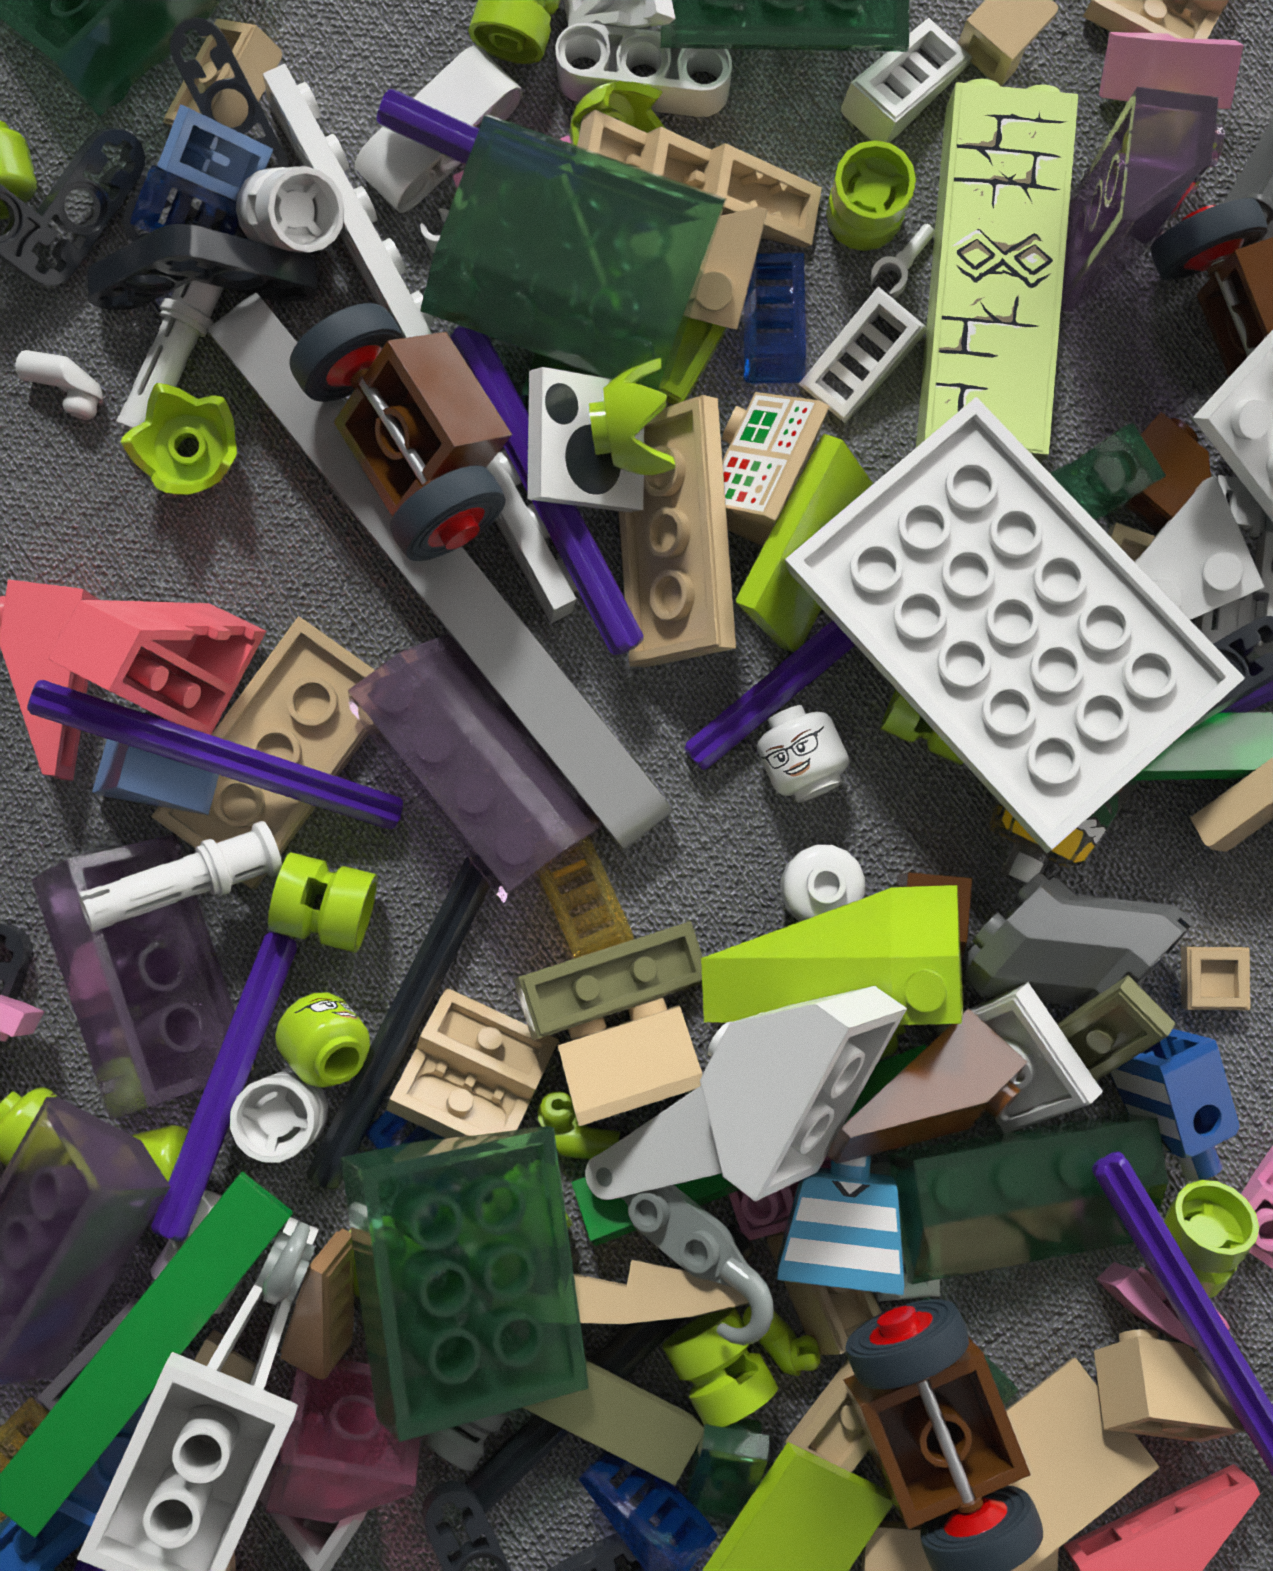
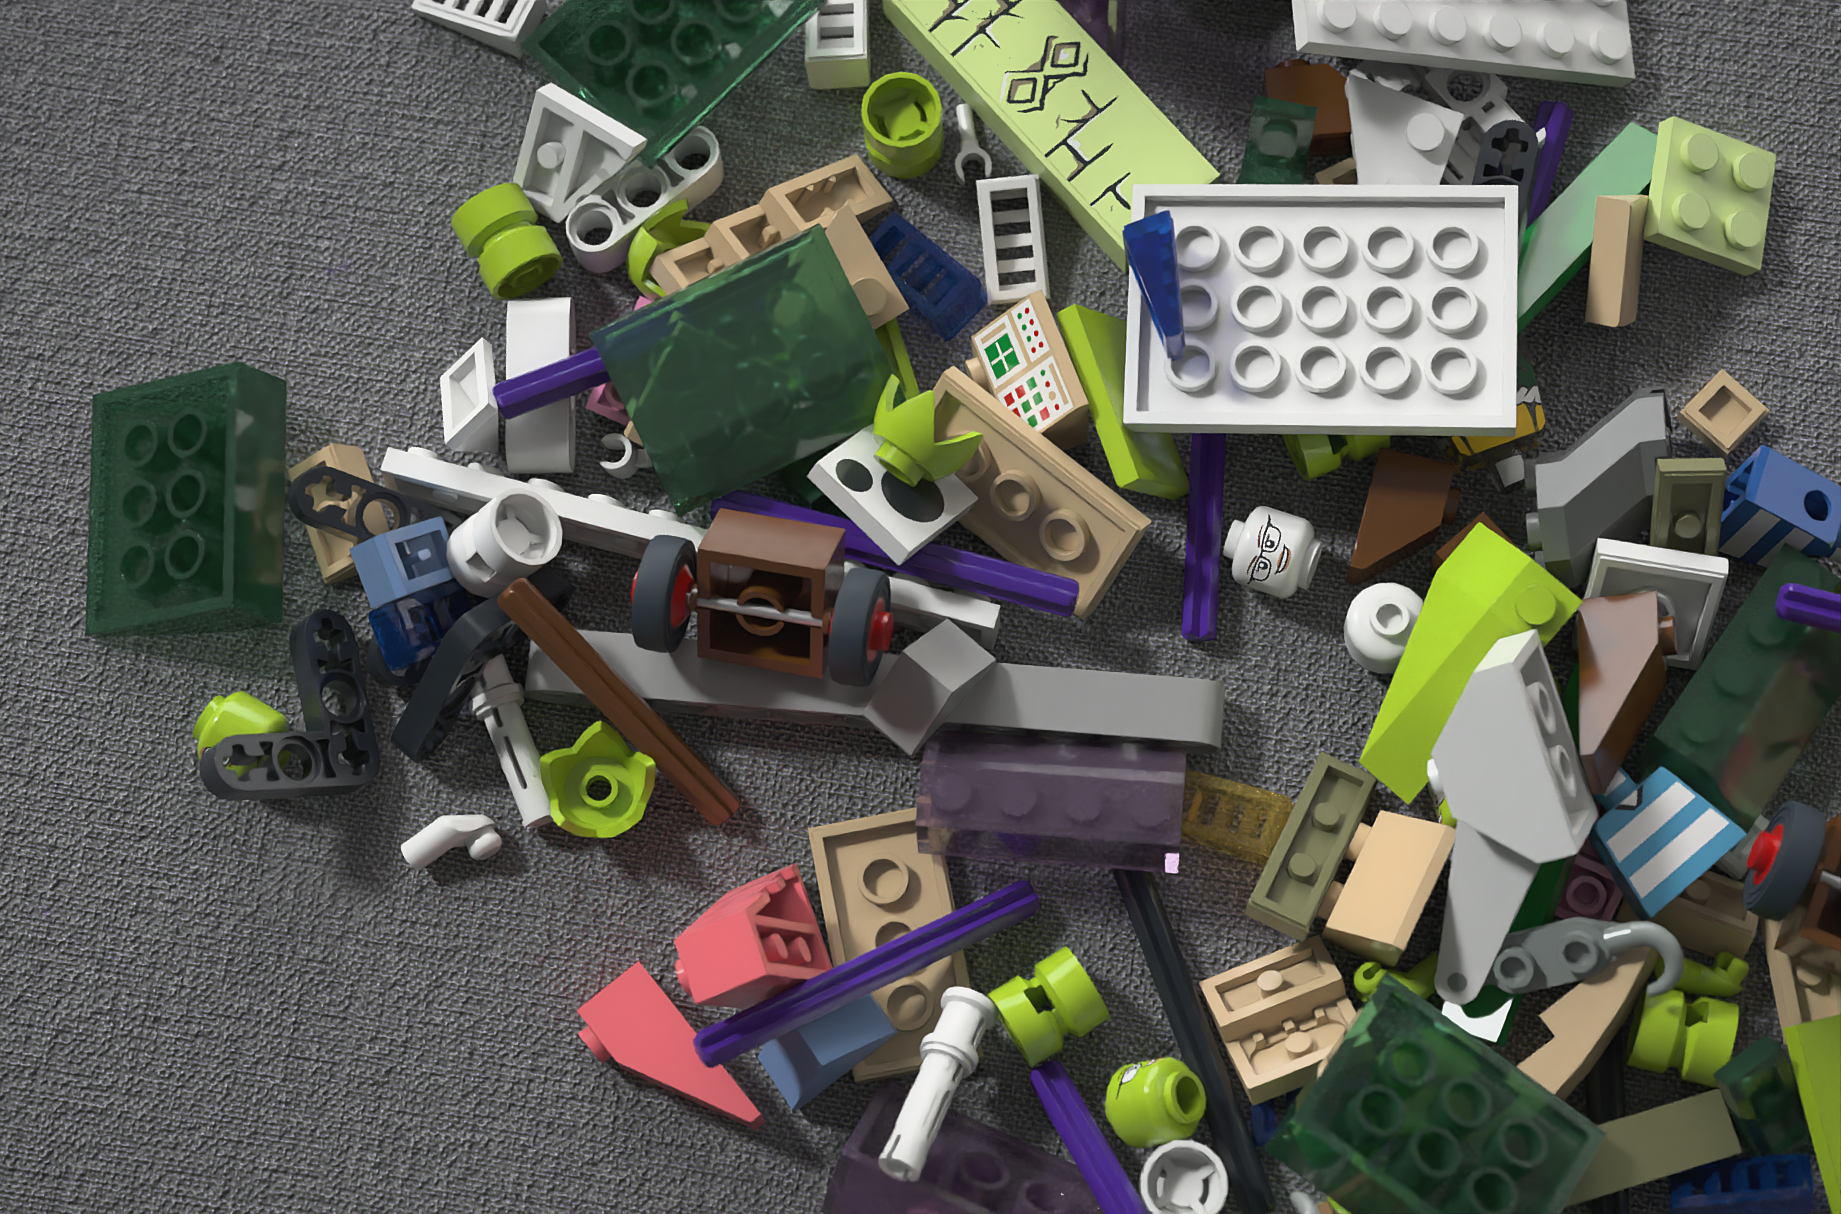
camera: 35 degrees left, 10 degrees down
(250, 394) = (618, 701): none -> reddish brown axle
(357, 99) = (469, 403): none -> white slope
(467, 602) = (927, 685): none -> light grey slope
(921, 817) = (1401, 512): none -> reddish brown slope
(928, 466) = (1153, 260): none -> clear blue slope

